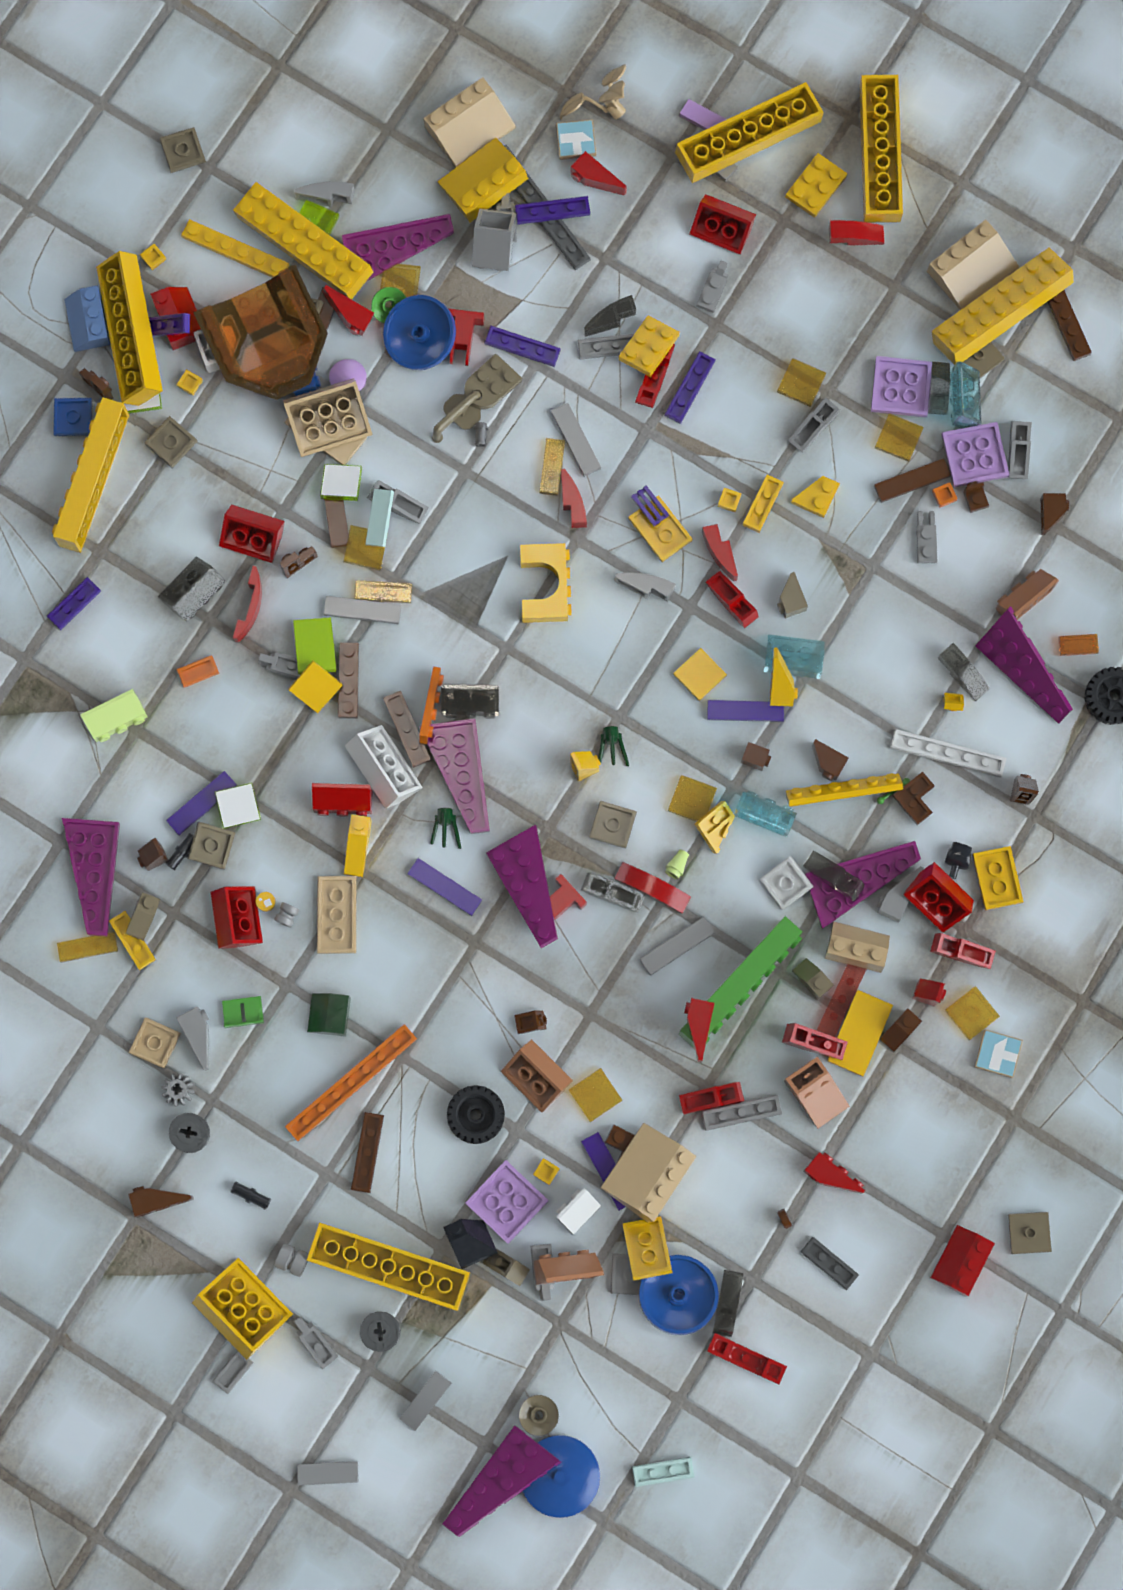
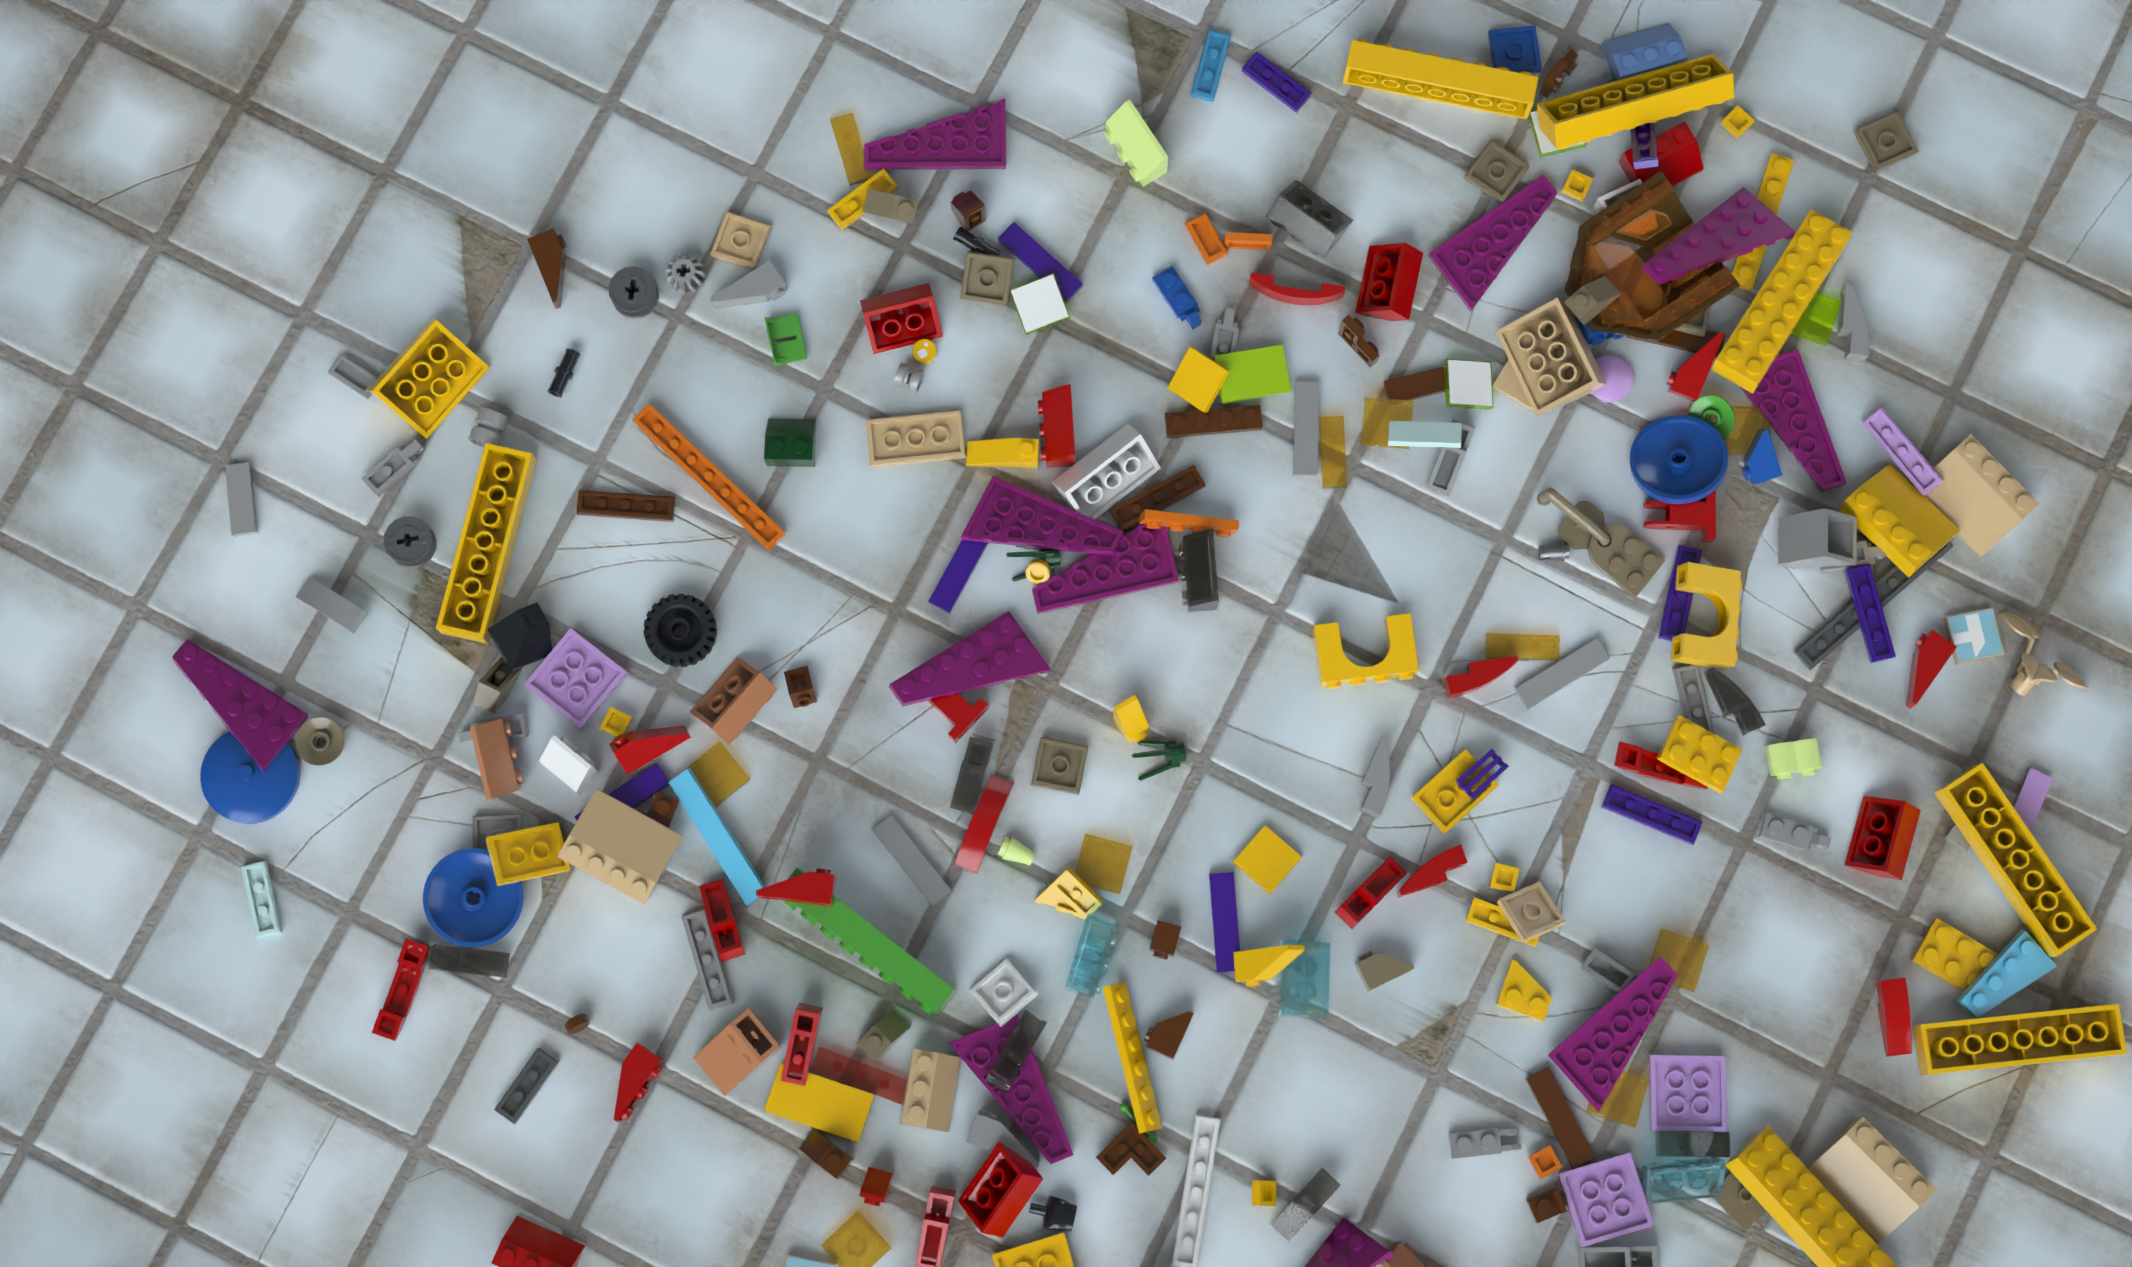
camera: 85 degrees right, 0 degrees up
(53, 653) = (1210, 65): none -> dark azure tile
(204, 639) = (1248, 240): none -> orange tile
(231, 457) = (1483, 249): none -> magenta wing
(243, 697) = (1178, 296): none -> blue hinge
(245, 275) = (1721, 235): none -> magenta wing
(288, 377) = (1592, 299): none -> dark tan slope
(415, 829) = (1028, 520): none -> magenta wing
(425, 272) = (1761, 460): none -> blue slope
(429, 170) = (1902, 451): none -> lavender tile
(456, 826) = (1038, 571): none -> yellow tile
(524, 313) = (1723, 589): none -> yellow arch
(567, 1148) = (643, 746): none -> red slope
(645, 1096) = (717, 835): none -> medium azure tile
(657, 279) = (1793, 758): none -> yellowish green brick
(758, 482) = (1531, 912): none -> tan tile
(831, 149) = (2009, 972): none -> medium azure wing
(859, 437) = (1605, 1042): none -> magenta wing

